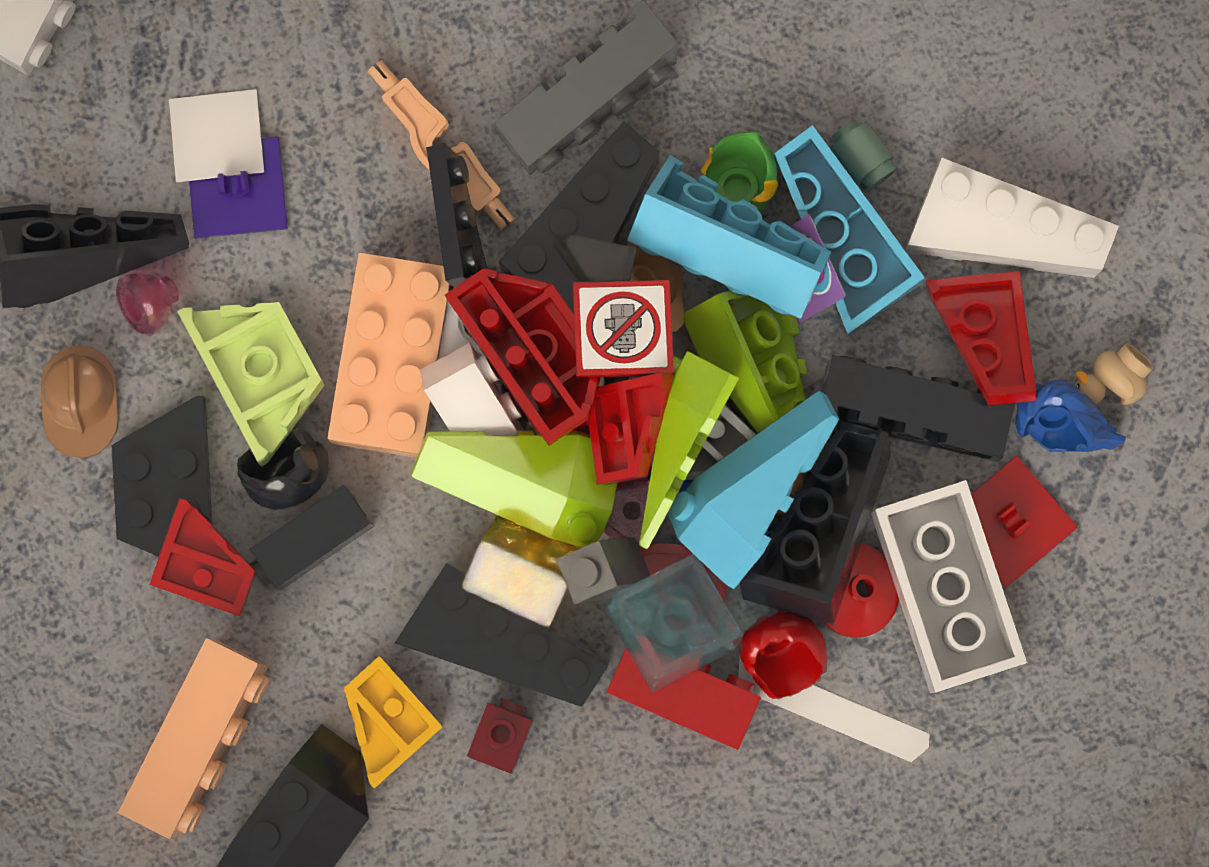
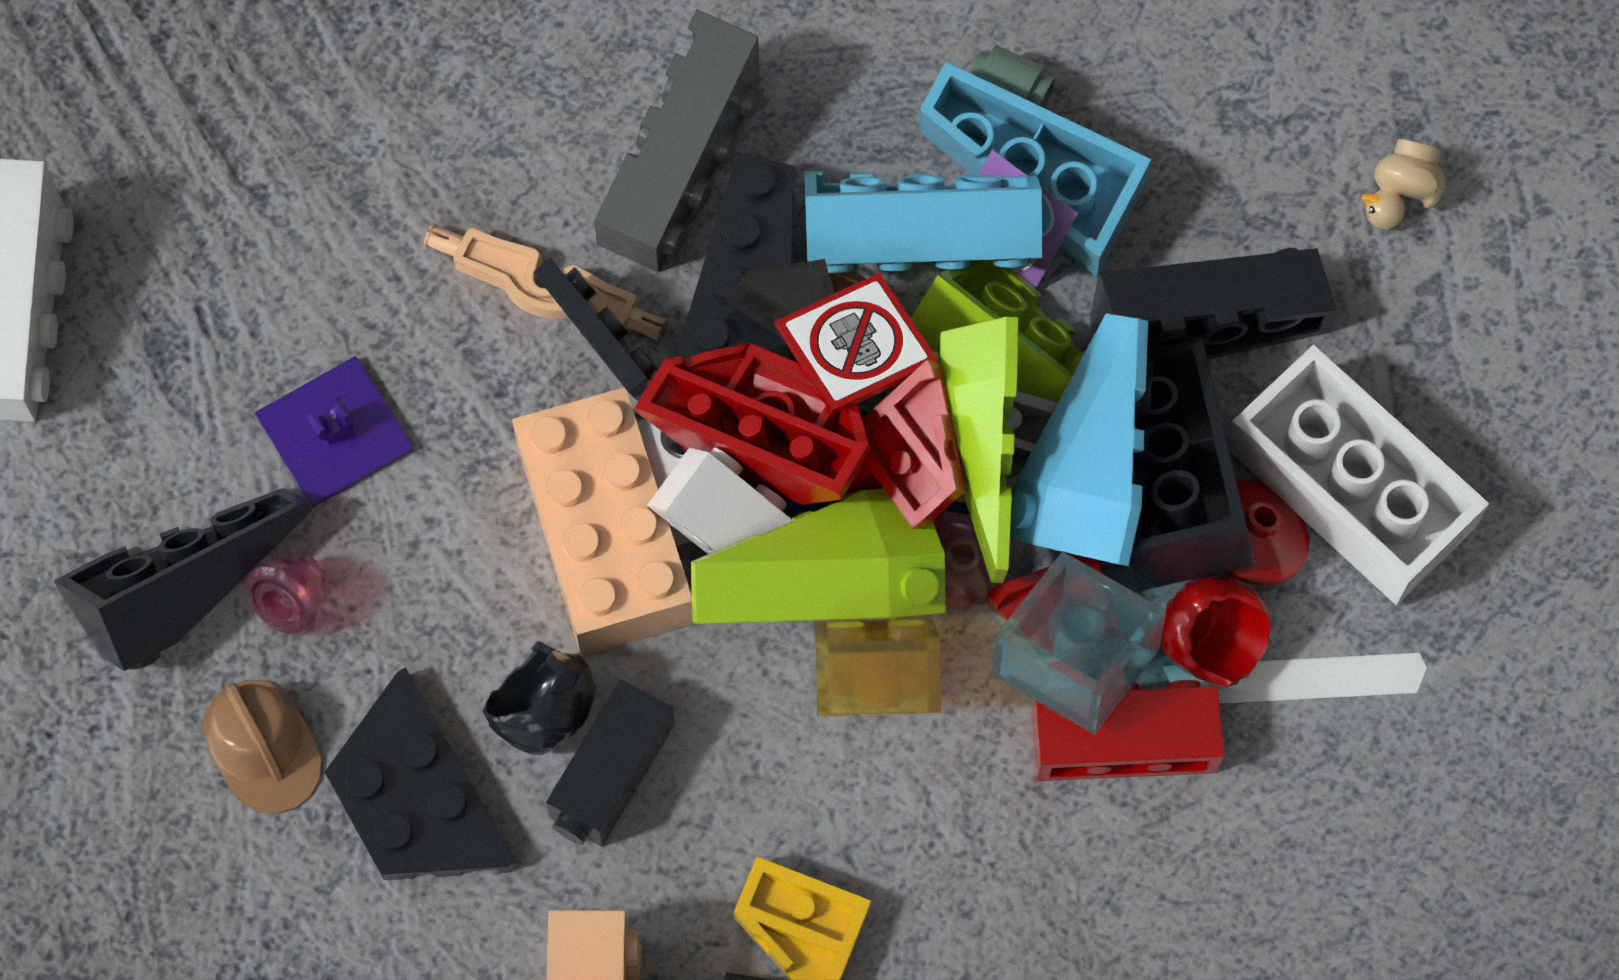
camera: 30 degrees left, 15 degrees down
(202, 563) = (497, 848): red wing -> none
(216, 135) = (281, 384): white sticker -> none
(257, 369) = (454, 606): yellowish green wing -> none
(498, 642) = (888, 772): black wedge -> none
(501, 735) = (944, 880): dark red brick -> none
(602, 569) = (966, 616): dark grey brick -> none
(743, 168) = (891, 143): bright green hair -> none
(990, 332) = (1248, 192): red wing -> none
(1004, 225) = (1203, 81): white wedge -> none
(1019, 520) = (1392, 371): red piece -> none
(1065, 420) = (1377, 246): blue hair -> none

